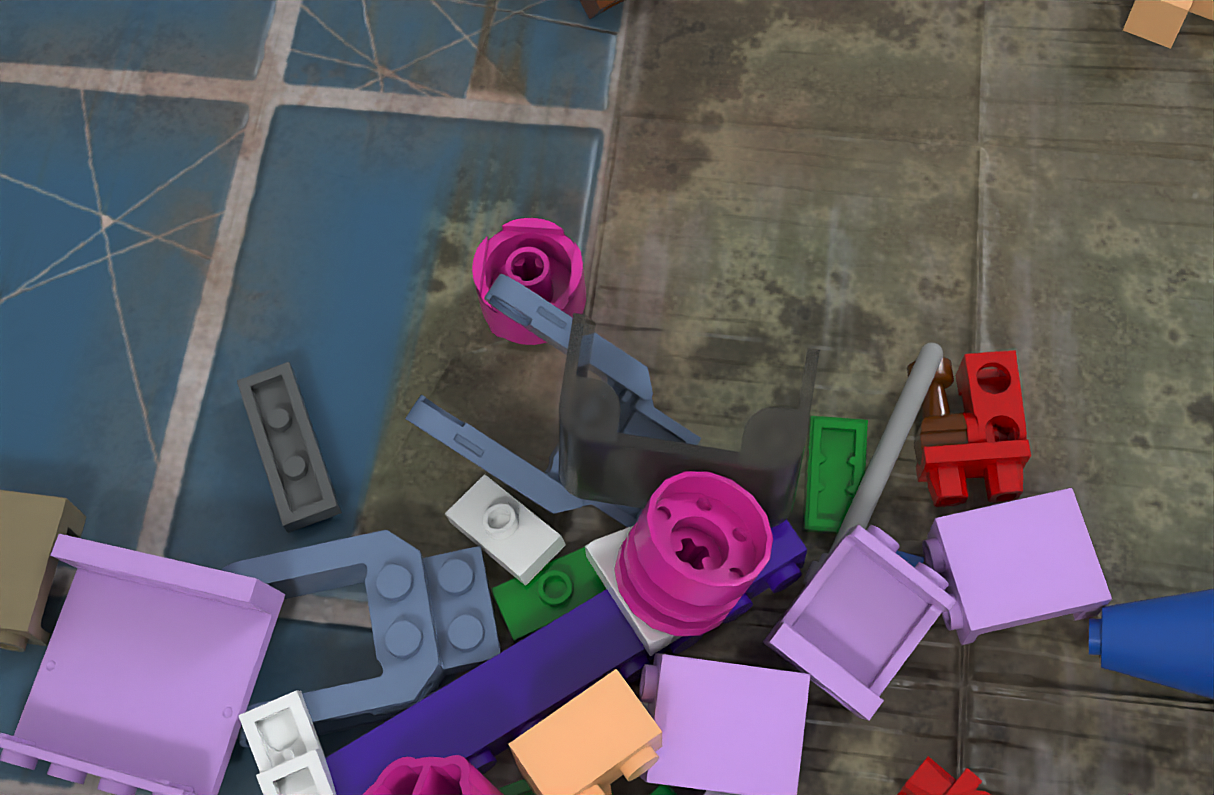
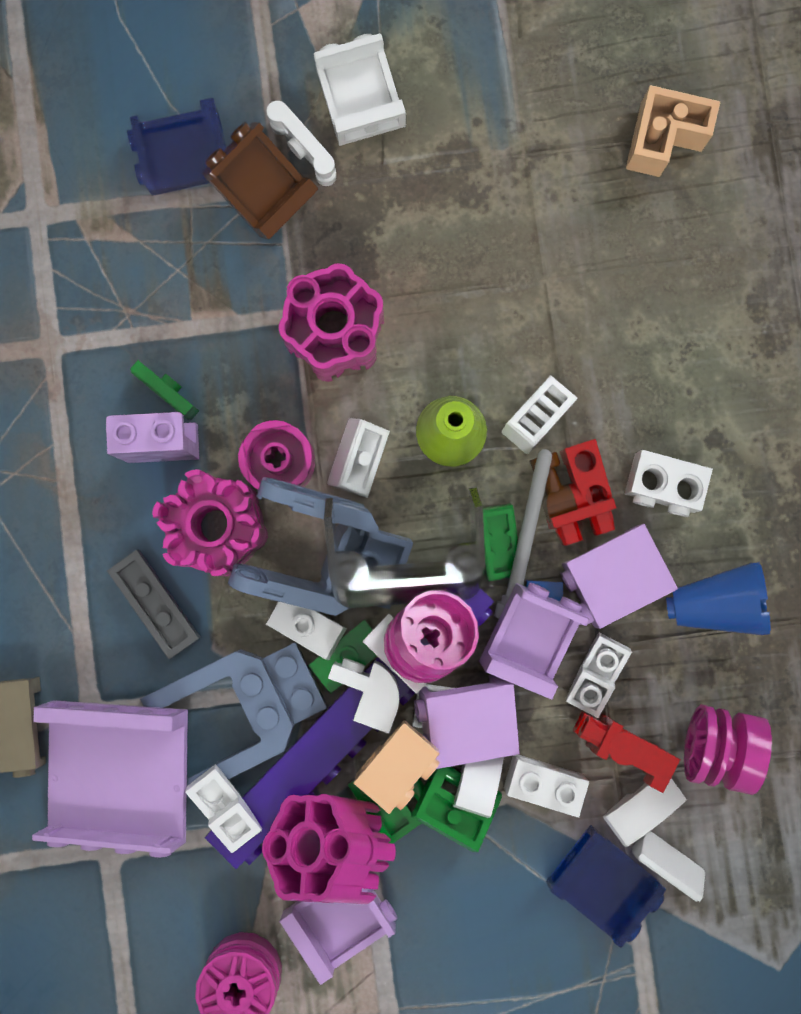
camera: 20 degrees left, 20 degrees up
(360, 209) = (152, 437): none -> lavender panel
(401, 166) = (165, 388): none -> green plate
(402, 311) = (182, 518): none -> dark pink piece
(588, 629) = (379, 688): none -> white brick
(653, 312) = (358, 457): none -> white slope
(659, 119) = (328, 291): none -> dark pink piece
(798, 298) = (447, 443): none -> lime cone
(904, 331) = (526, 433): none -> white slope
(955, 715) = (598, 675): none -> white slope
(1124, 432) = (668, 474): none -> white brick

